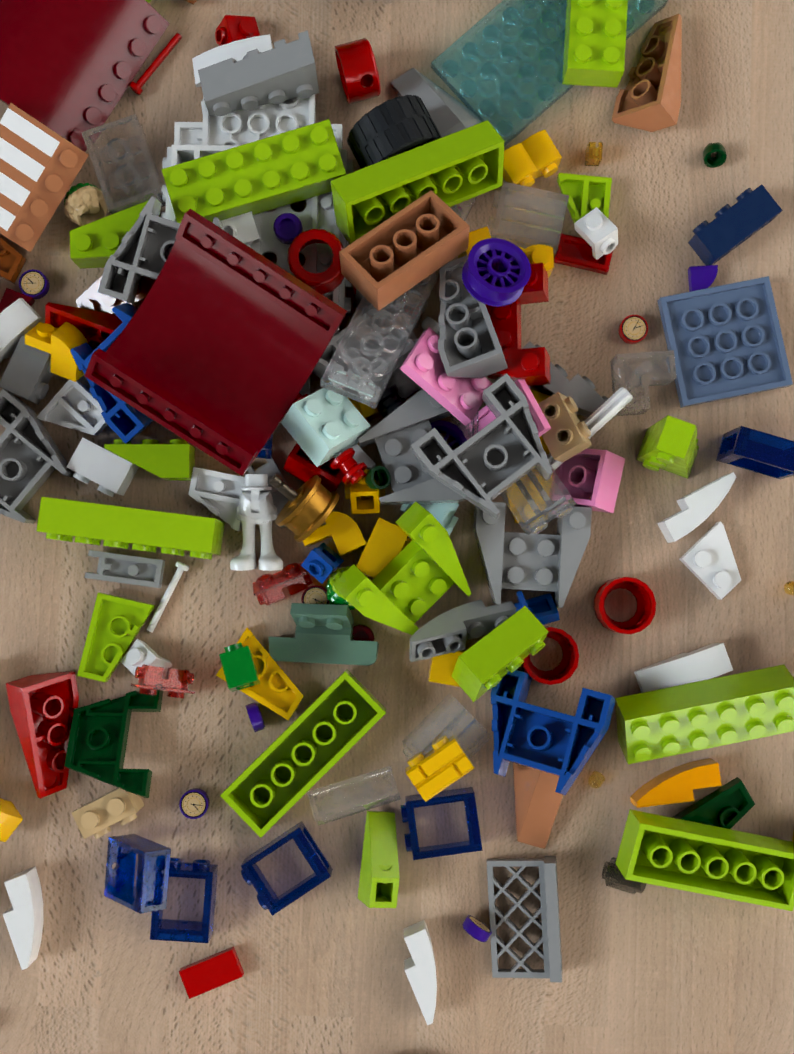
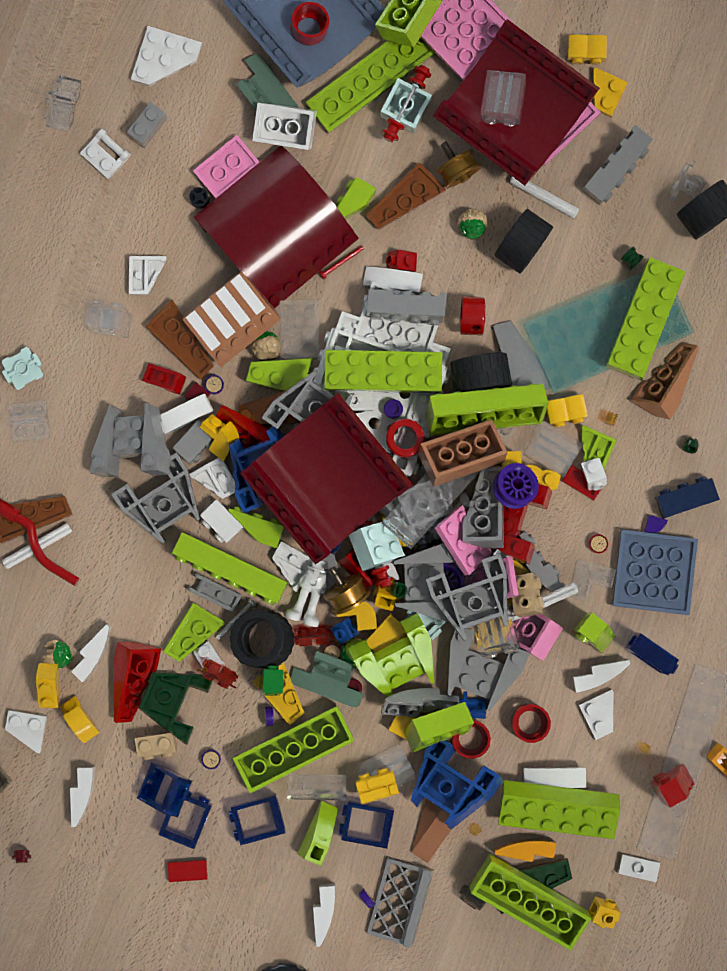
camera: 15 degrees right, 0 degrees up
(178, 617) = (240, 638): none -> black tyre

